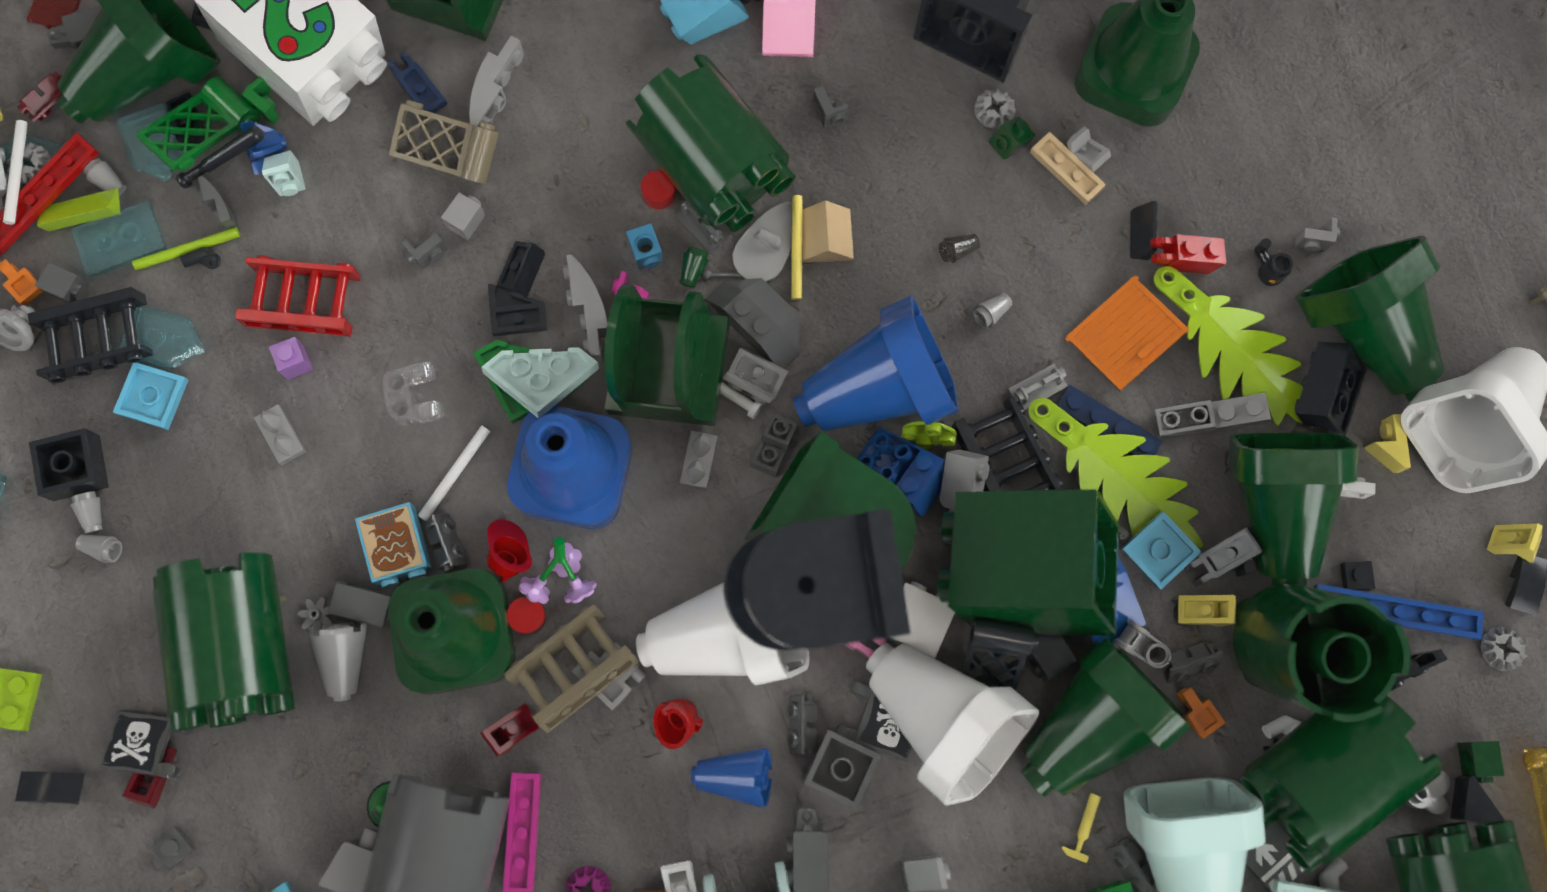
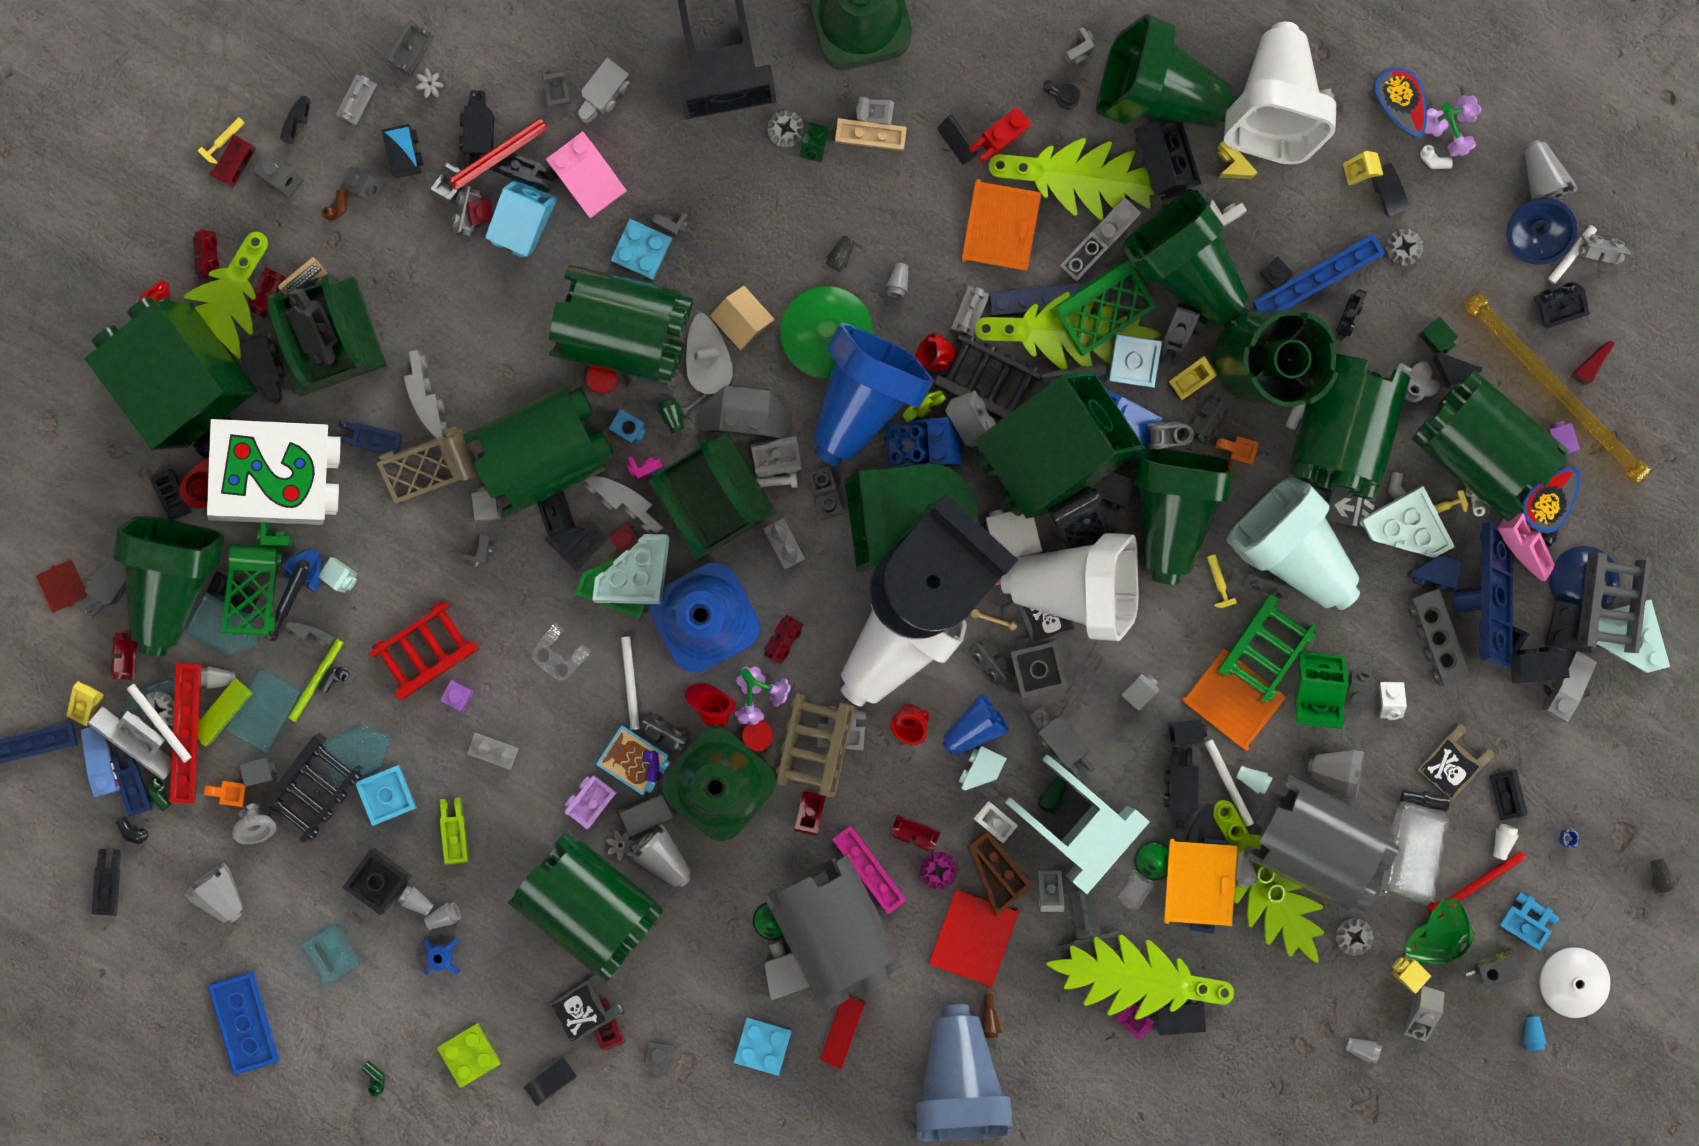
camera: 35 degrees left, 10 degrees up
(61, 582) = (445, 952): none -> blue brick
(178, 478) = (453, 834): none -> lime hinge
(322, 549) = (590, 801): none -> lavender bracket
(404, 562) = (653, 766): none -> dark purple arm
(546, 195) = (540, 449): none -> dark green brick
(560, 339) = (624, 538): none -> dark red plate
(589, 822) = (906, 829): none -> dark red hinge
(614, 551) = (779, 649): none -> dark red hinge
(711, 825) = (984, 768): none -> light aqua slope
(785, 110) = (641, 249): none -> medium azure plate
(796, 267) = (730, 343): light yellow bar -> none
(823, 667) = (975, 614): none -> tan hinge
(881, 282) = (812, 323): none -> green dish
(978, 397) = (935, 352): none -> red helmet
(1170, 453) = (1090, 292): none -> green fence

